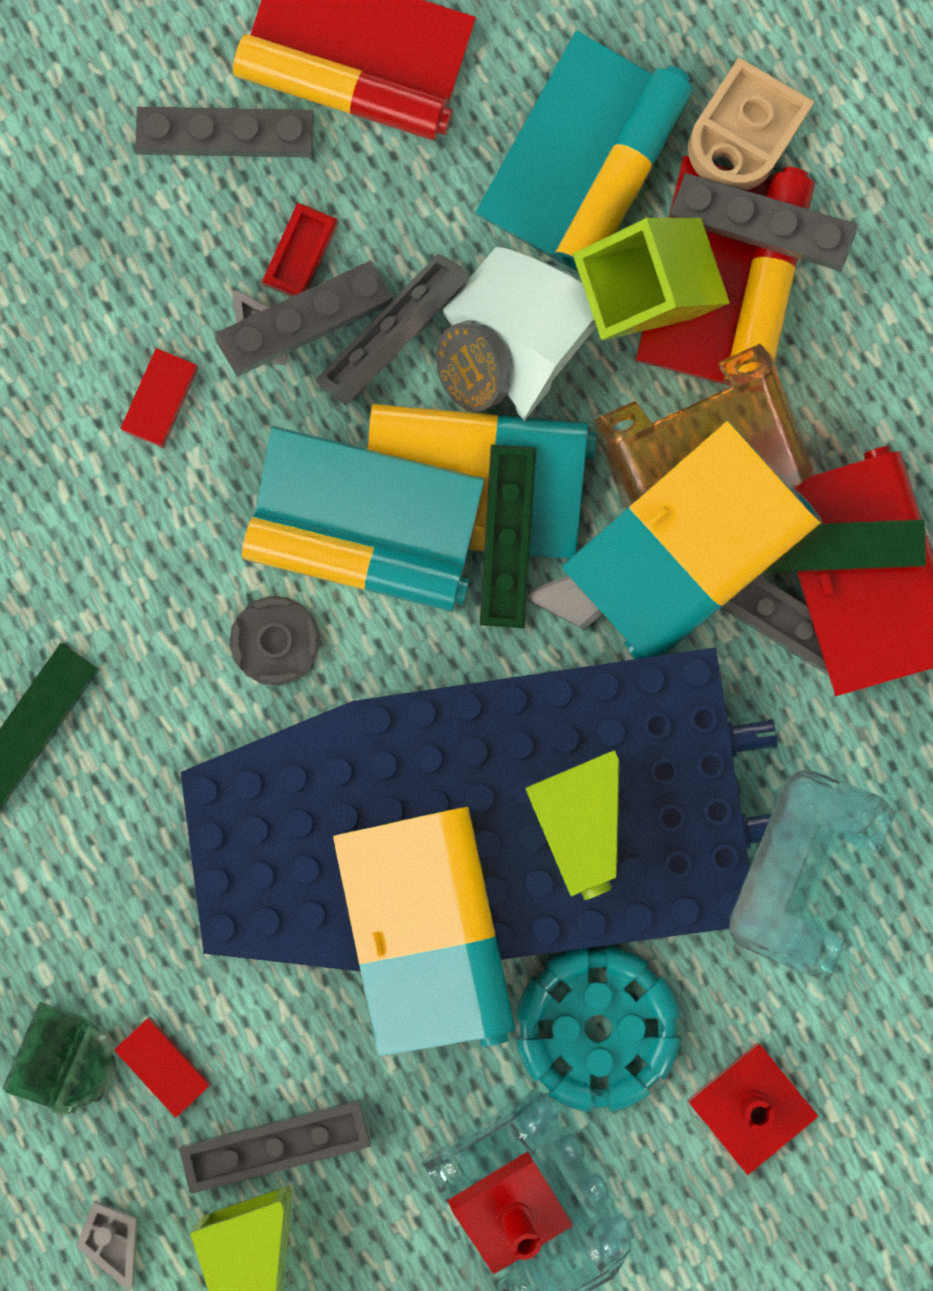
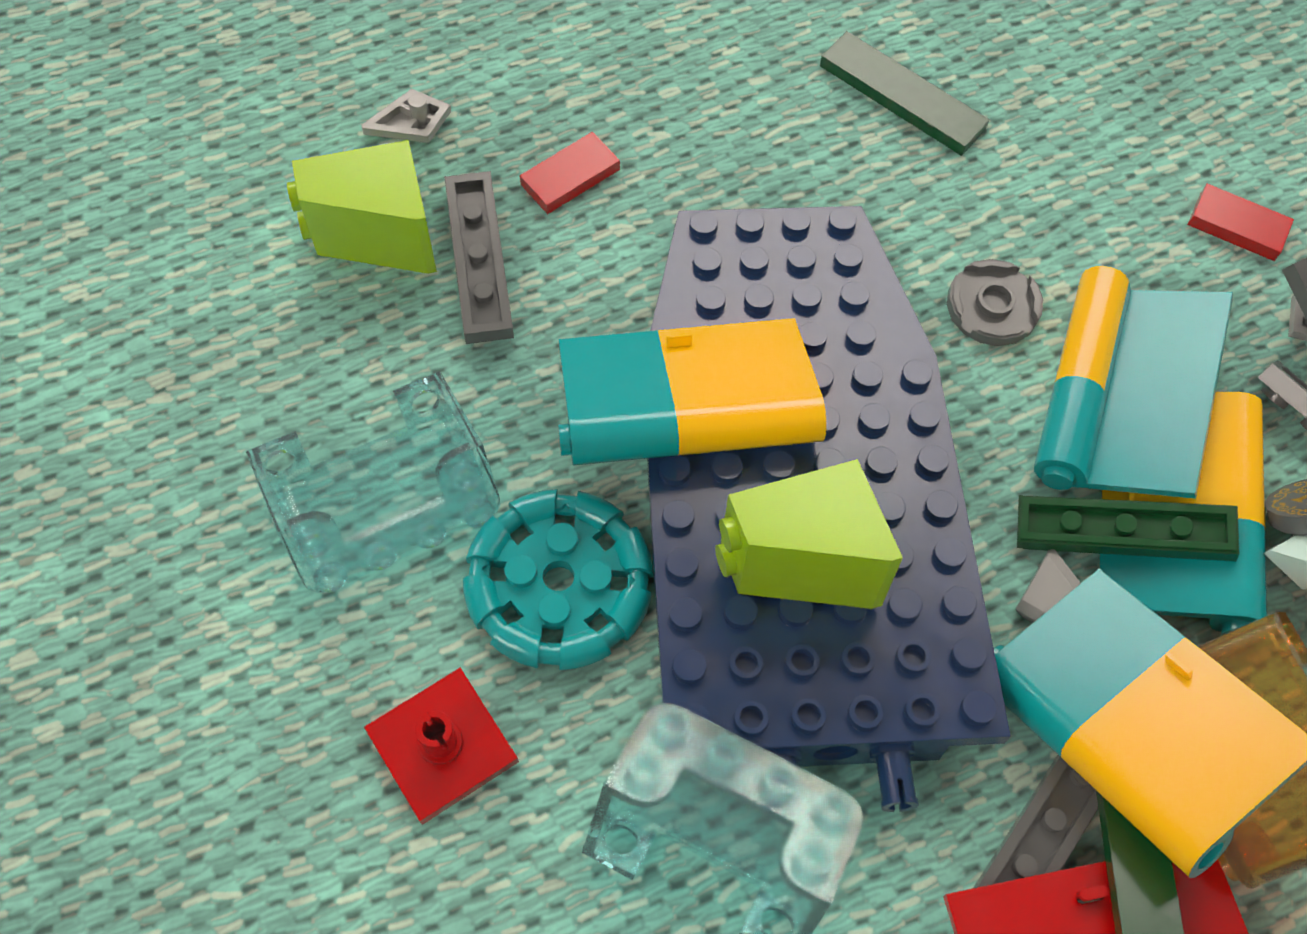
camera: 85 degrees right, 20 degrees down
(61, 1062) = (587, 89): clear green slope -> none
(510, 1213) = (370, 457): red tile -> none

